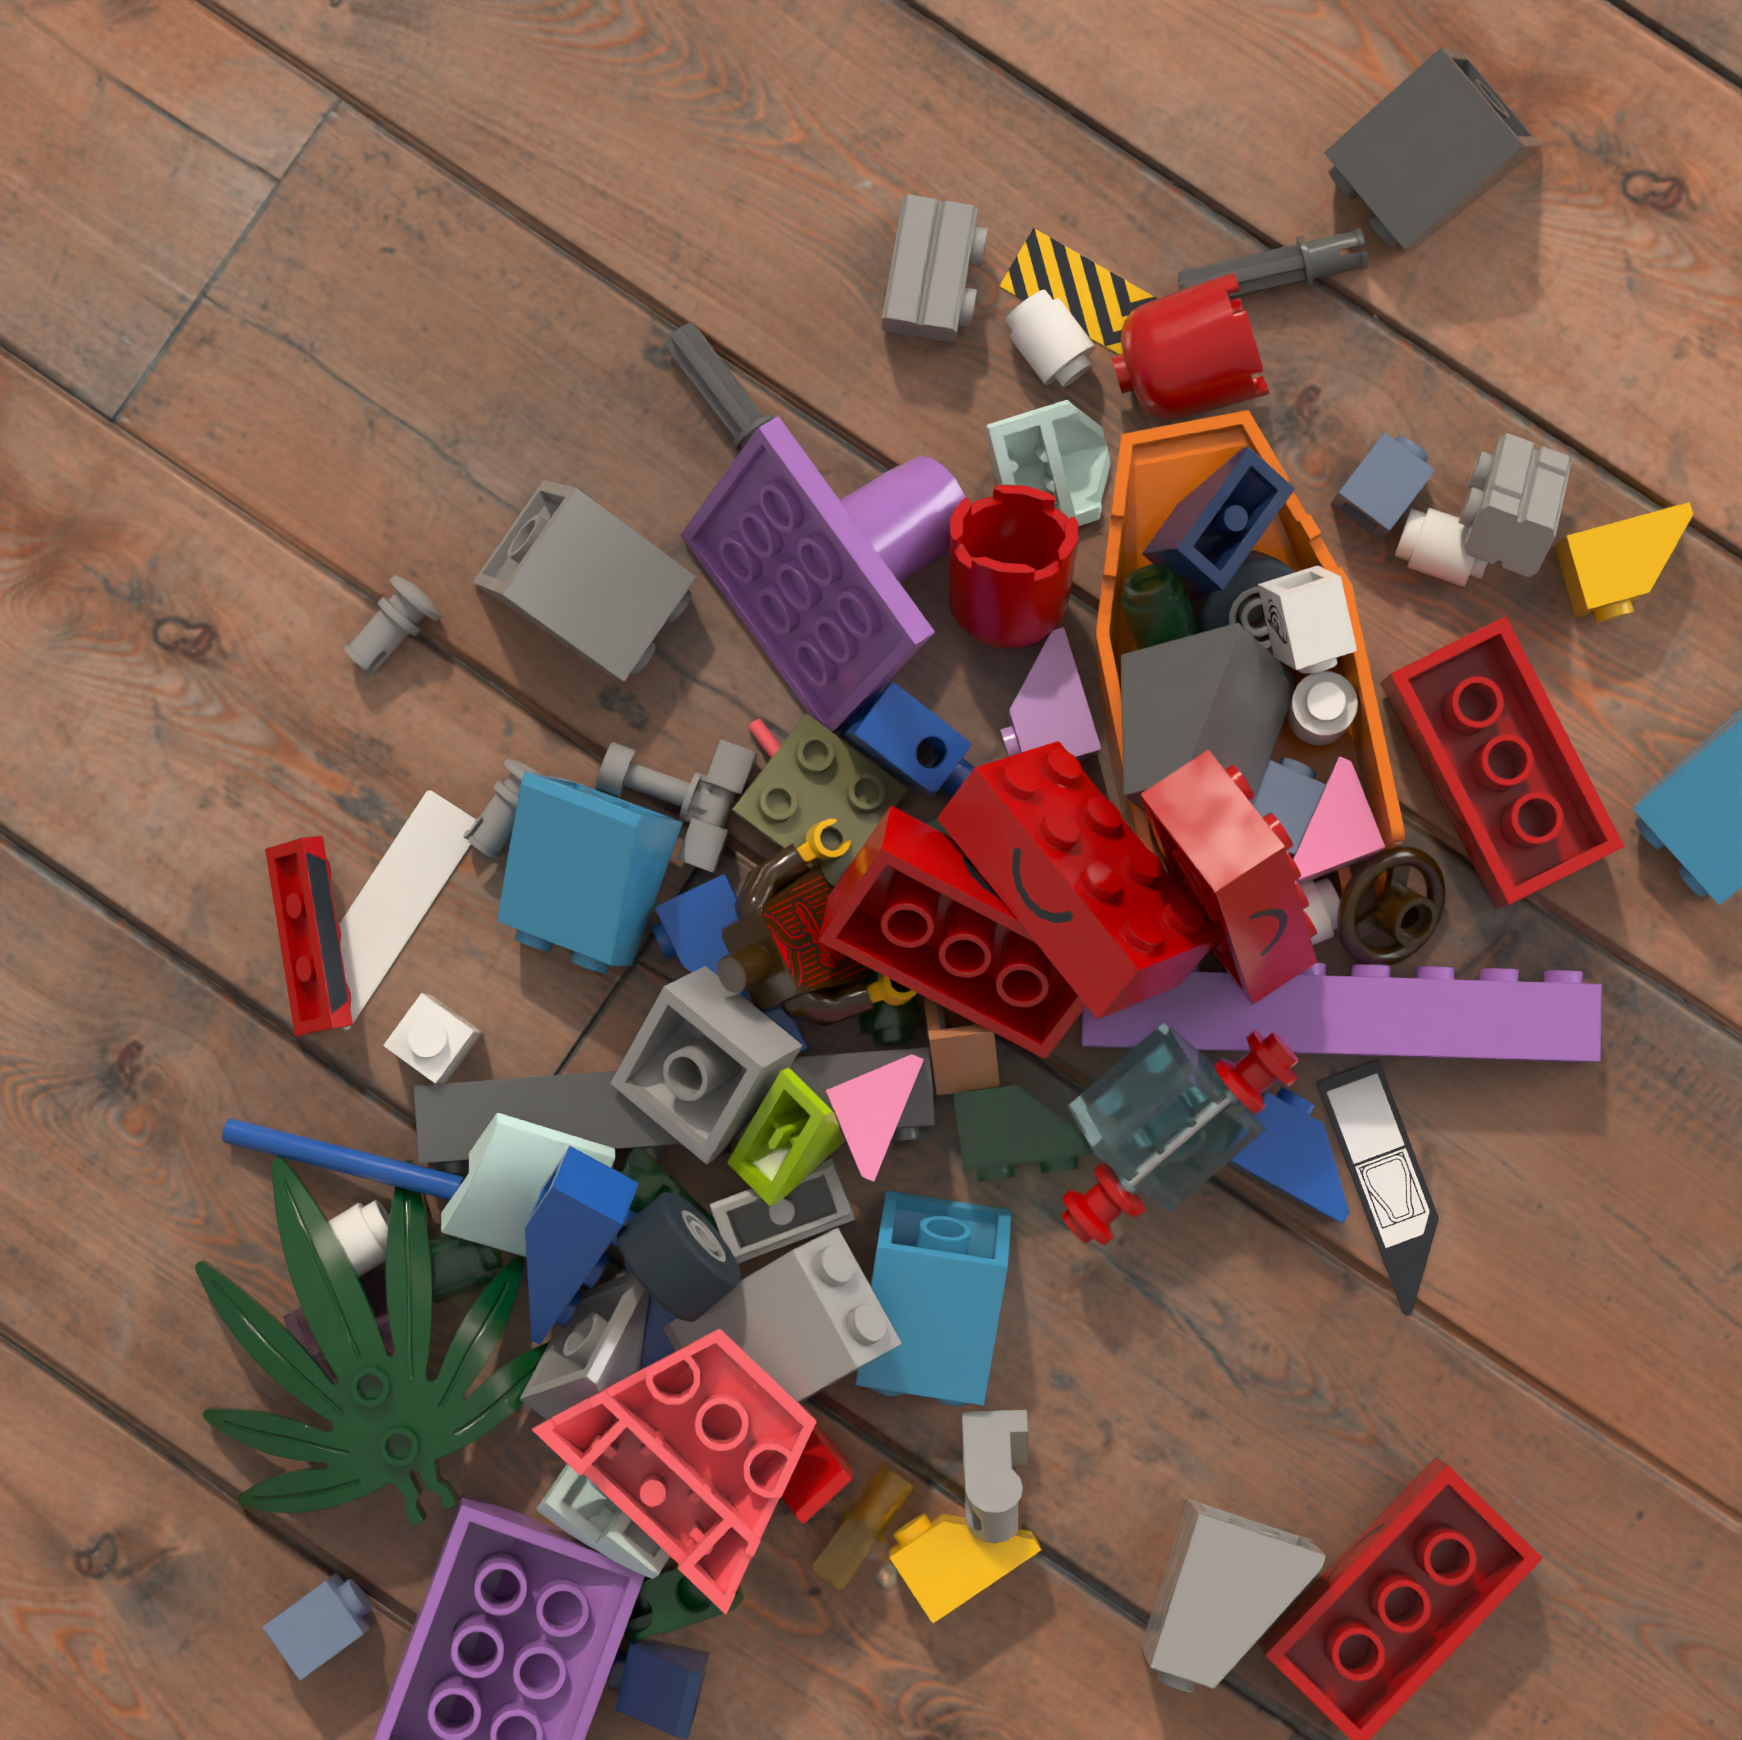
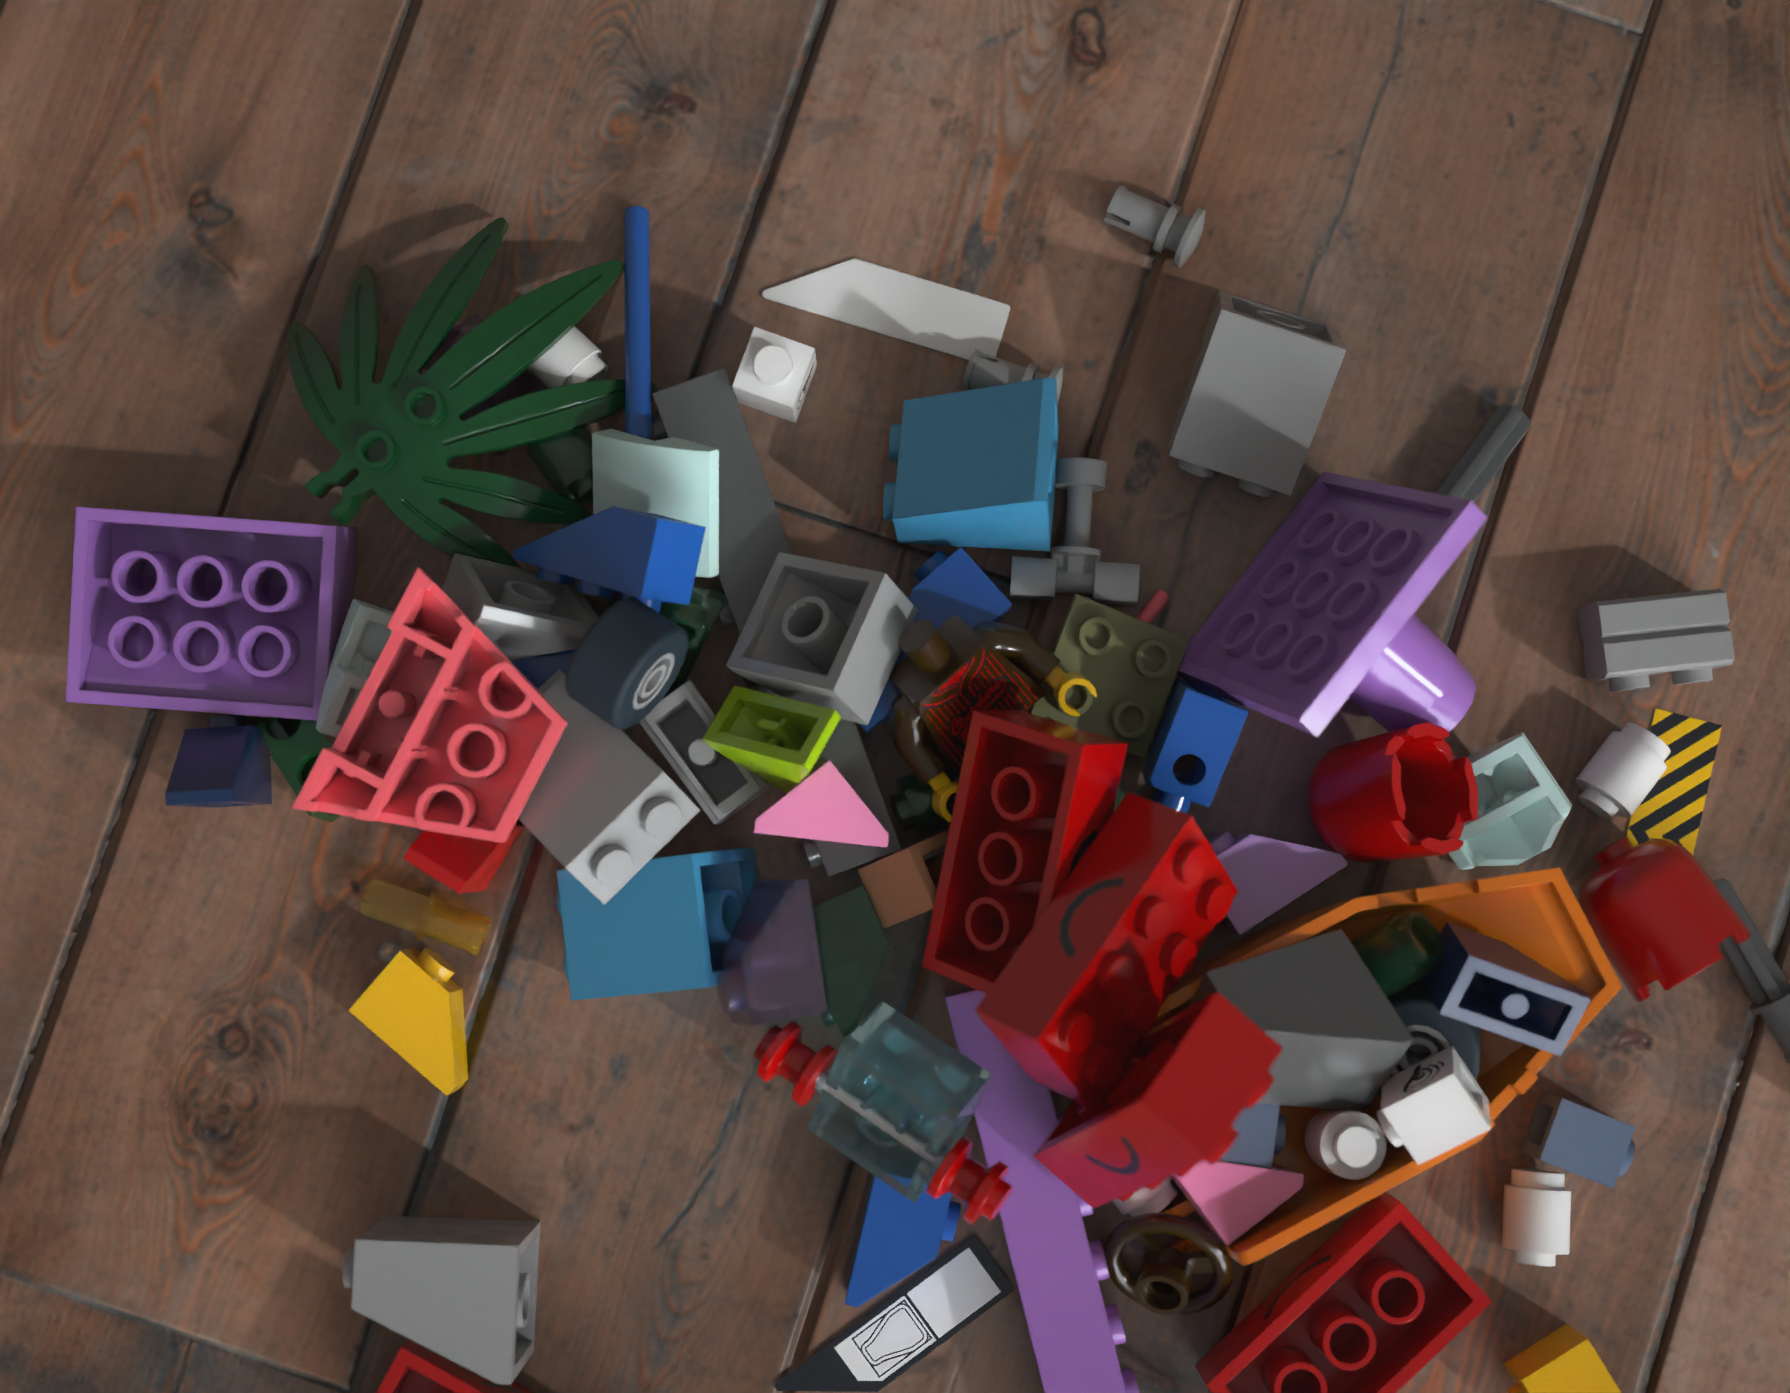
camera: 65 degrees right, 0 degrees up
(309, 936) = (840, 232): red plate -> none
(320, 1624) = (195, 429): sand blue brick -> none
(991, 1488) = (493, 1030): light grey leg -> none
(995, 1197) = (773, 957): none -> clear purple slope
(1514, 504) = (1603, 1278): light grey brick -> none

